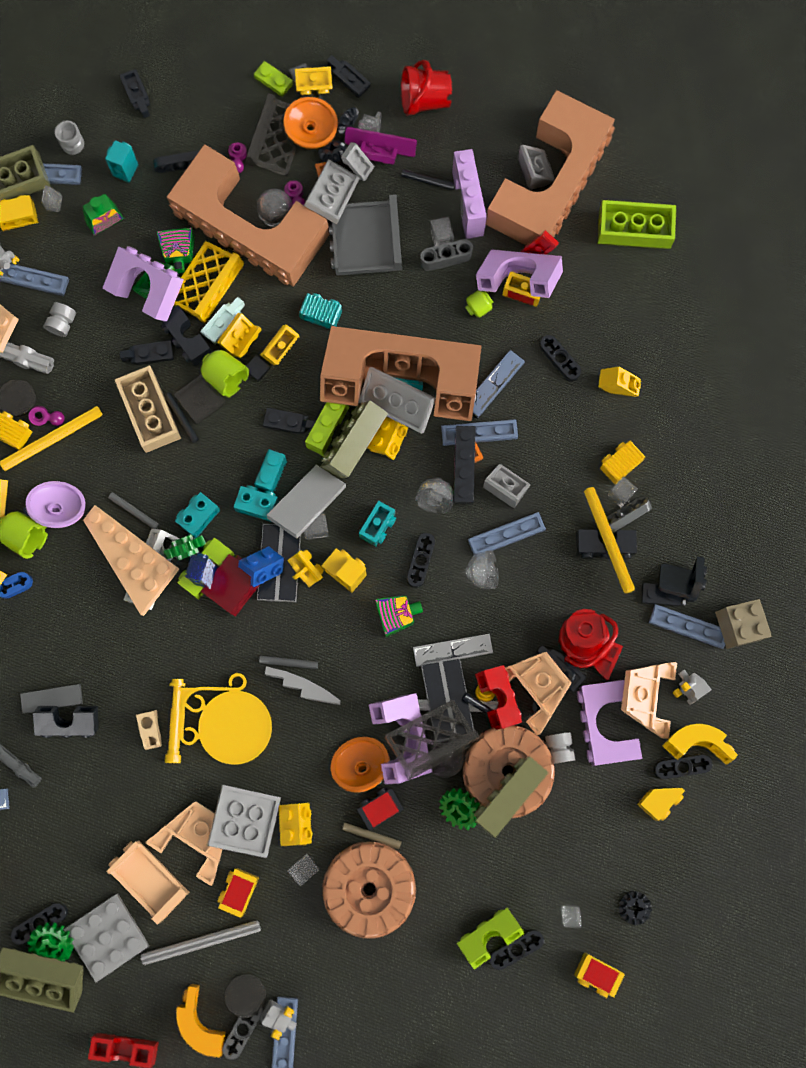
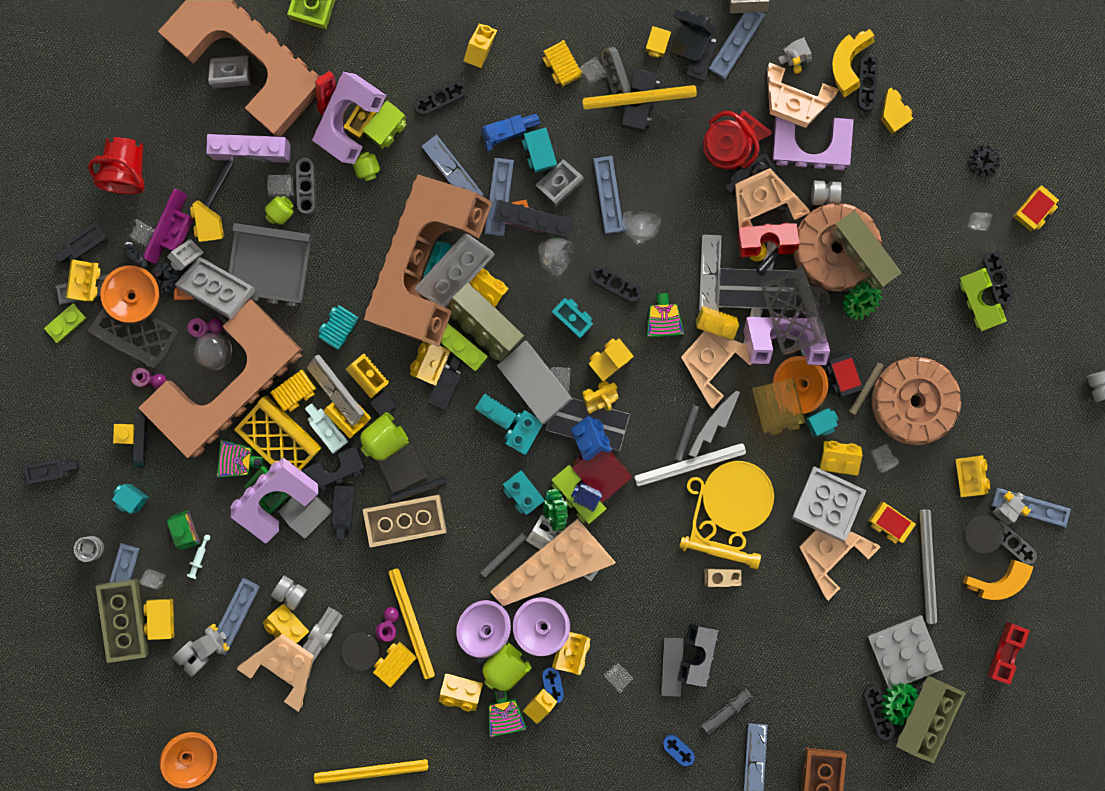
camera: 80 degrees left, 10 degrees up
(29, 324) = (286, 623): none -> yellow bracket
(31, 647) = (618, 676): none -> clear panel
(48, 595) = (572, 654): none -> yellow bracket
(61, 551) = (529, 631): none -> lavender dish
(79, 235) = (198, 558): none -> light aqua piece
(136, 322) = (305, 518): none -> light grey slope
(147, 880) = (863, 604): light nougat panel -> none
(180, 143) = (123, 433): none -> yellow brick
(252, 284) = (293, 391): none -> yellow brick
(257, 672) = (691, 464): none -> white axle
(260, 319) = (335, 390): none -> light grey tile
(304, 401) = (429, 362): none -> yellow bracket
(304, 969) = (972, 476): none -> yellow bracket
(326, 795) = (822, 422): none -> teal brick
(333, 747) = (779, 406): none -> clear yellow brick
(366, 664) = (707, 357): none -> light nougat wing
(392, 175) = (207, 223): none -> yellow slope
(404, 666) = (717, 323): none -> yellow brick
(418, 236) = (279, 210): none -> lime head
(521, 309) = (385, 125): none -> lime brick
(533, 458) = (540, 150): none -> teal brick
(545, 424) = (507, 129): none -> blue piece
(667, 548) = (657, 42): none -> yellow brick

